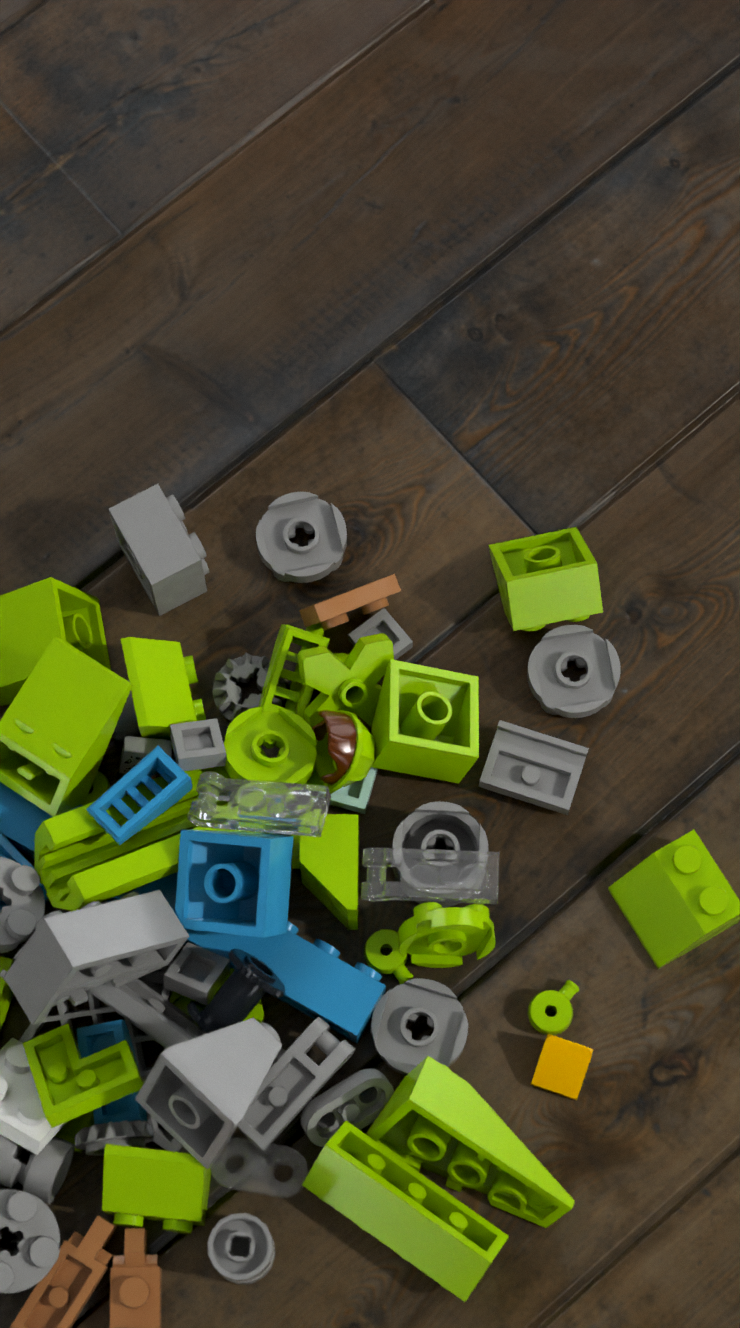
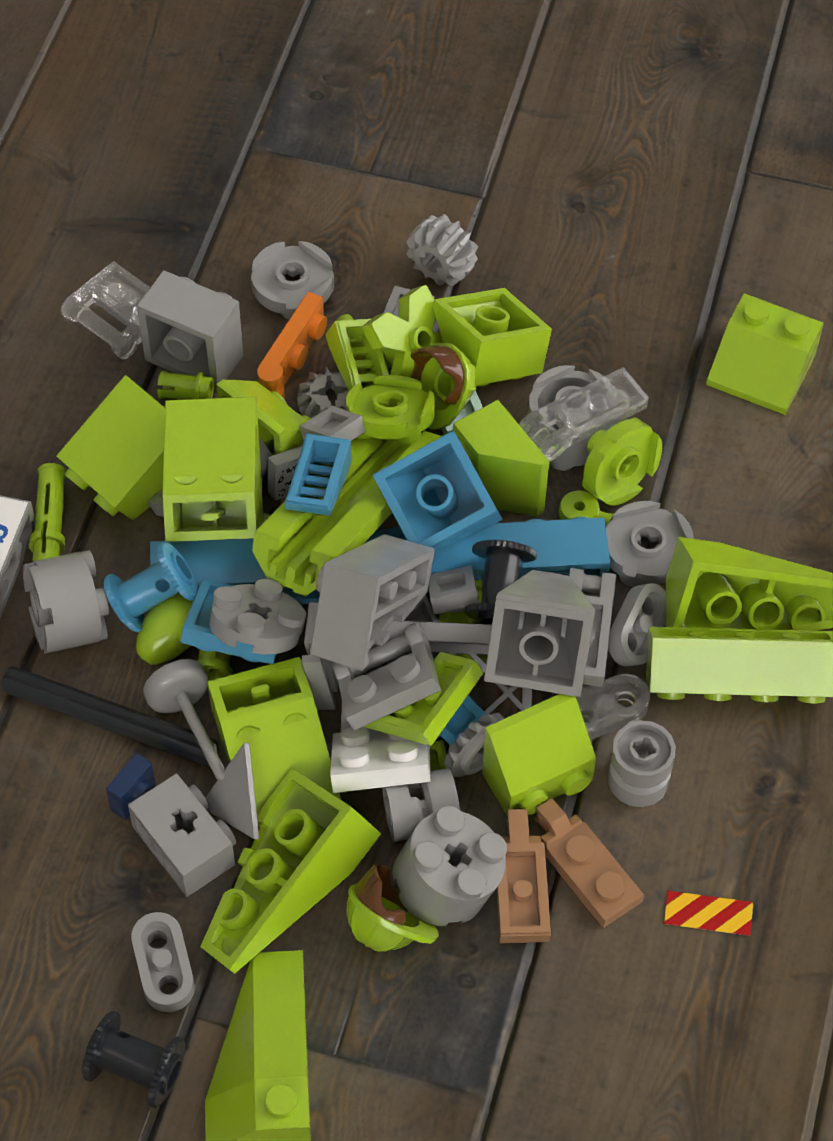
camera: 35 degrees left, 15 degrees down
(68, 1046) = (391, 686): none -> light grey plate
(126, 599) = (185, 386): none -> lime pin
(134, 463) = (119, 295): none -> clear plate
(243, 618) = (292, 344): none -> orange plate
(260, 806) = (414, 431): clear plate -> none
(368, 597) = (375, 284): medium nougat plate -> none
(451, 597) = (442, 250): none -> light grey gear
(533, 767) = (591, 331): light grey plate -> none
(546, 579) = (504, 208): lime slope -> none
(559, 1003) = (734, 479): lime piece -> none
(562, 1066) = (772, 508): yellow slope -> none
(589, 651) = (564, 276): light grey plate -> none

